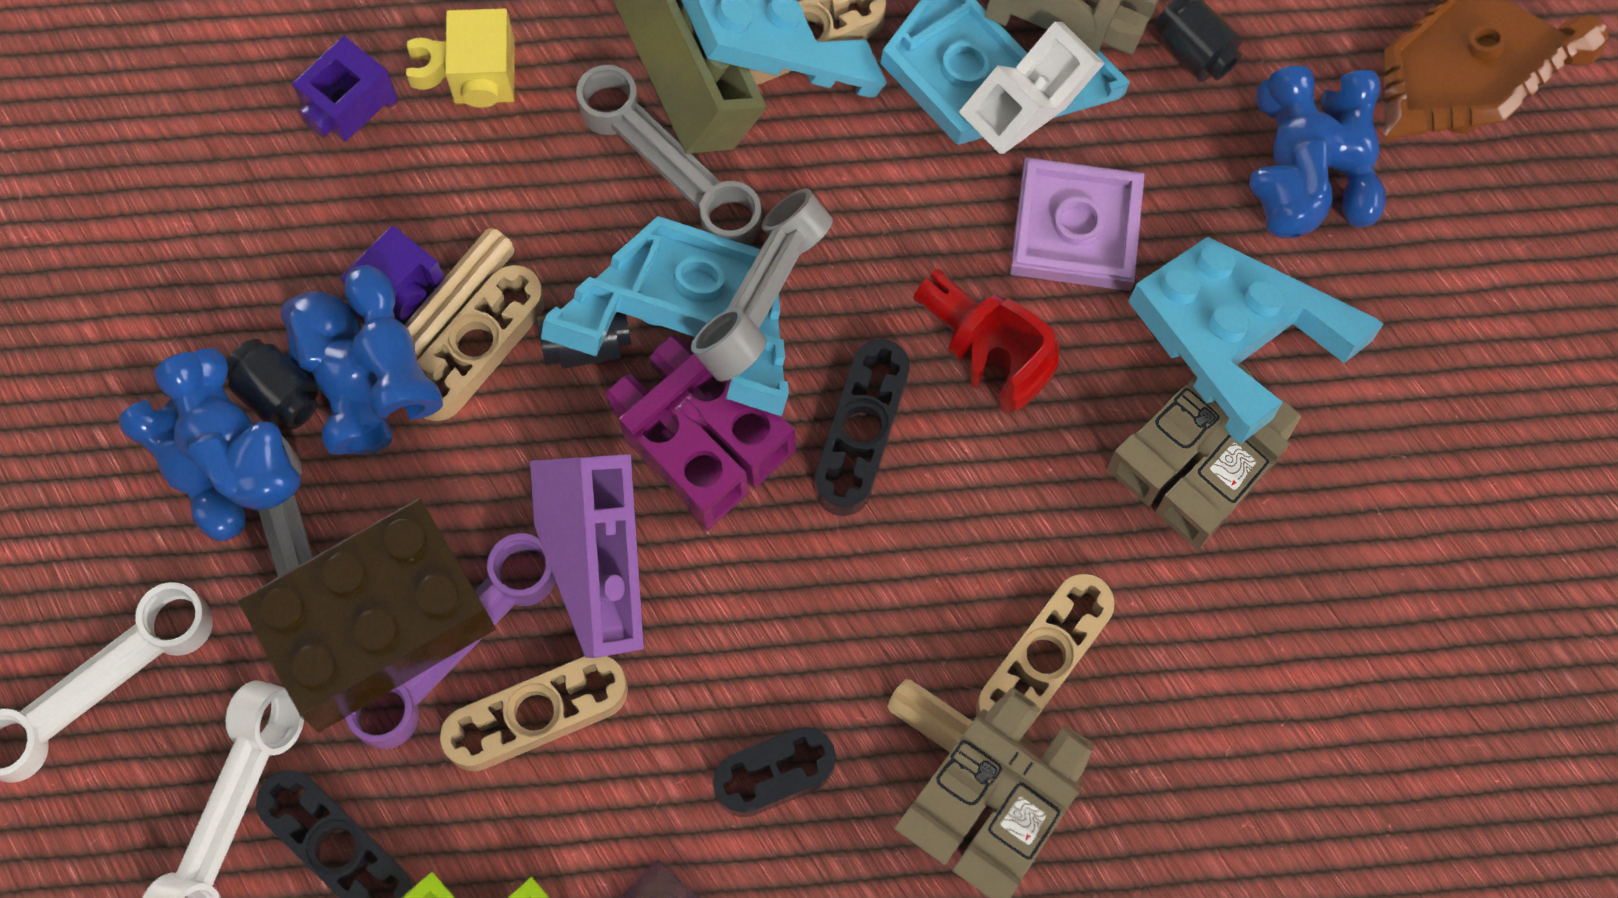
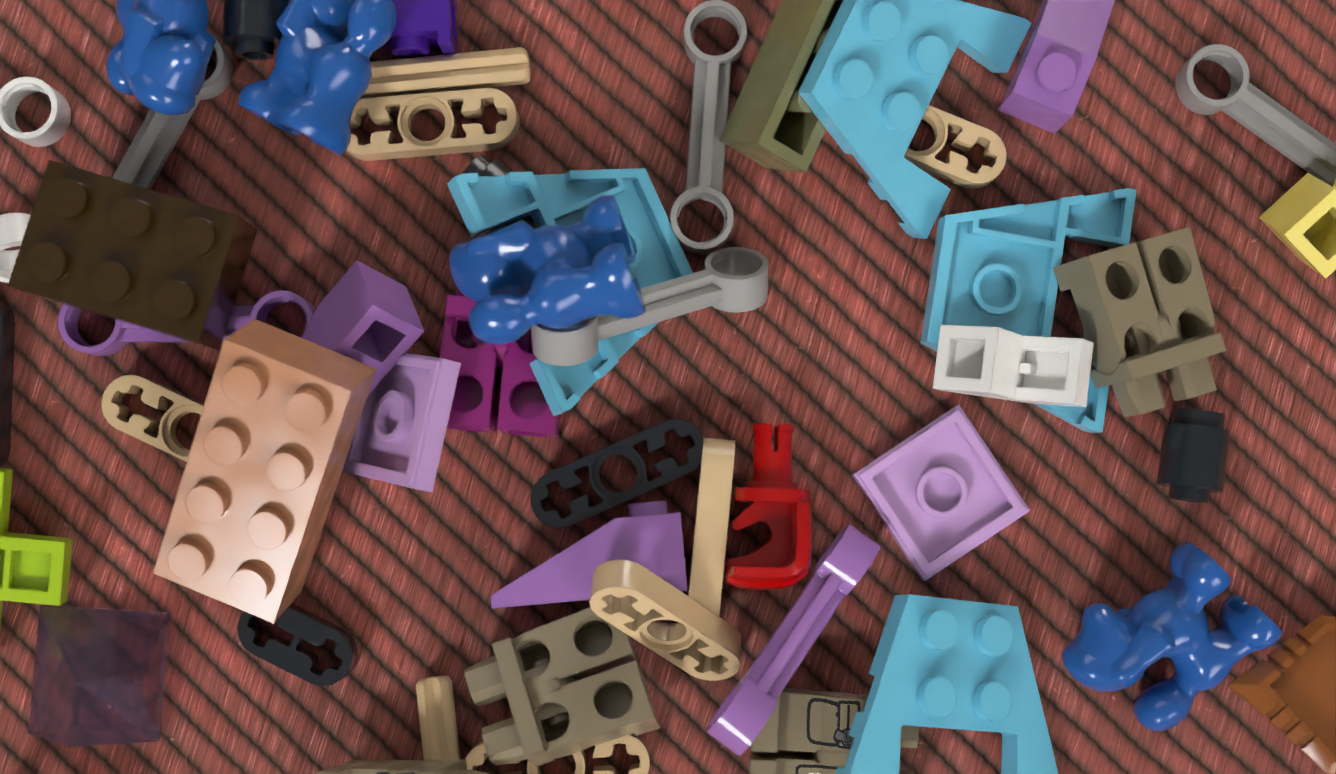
camera: 50 degrees right, 15 degrees up
(627, 658) = (263, 469): none -> nougat brick
(685, 533) = (405, 423): none -> lavender tile
(690, 301) = (548, 274): none -> blue animal
(932, 467) = (645, 537): none -> medium lavender slope
(967, 396) = (711, 523): none -> tan beam
(988, 454) = (636, 597): none -> tan beam
(993, 586) = (565, 688): none -> dark tan hips
(1123, 449) = (756, 694): none -> medium lavender piece

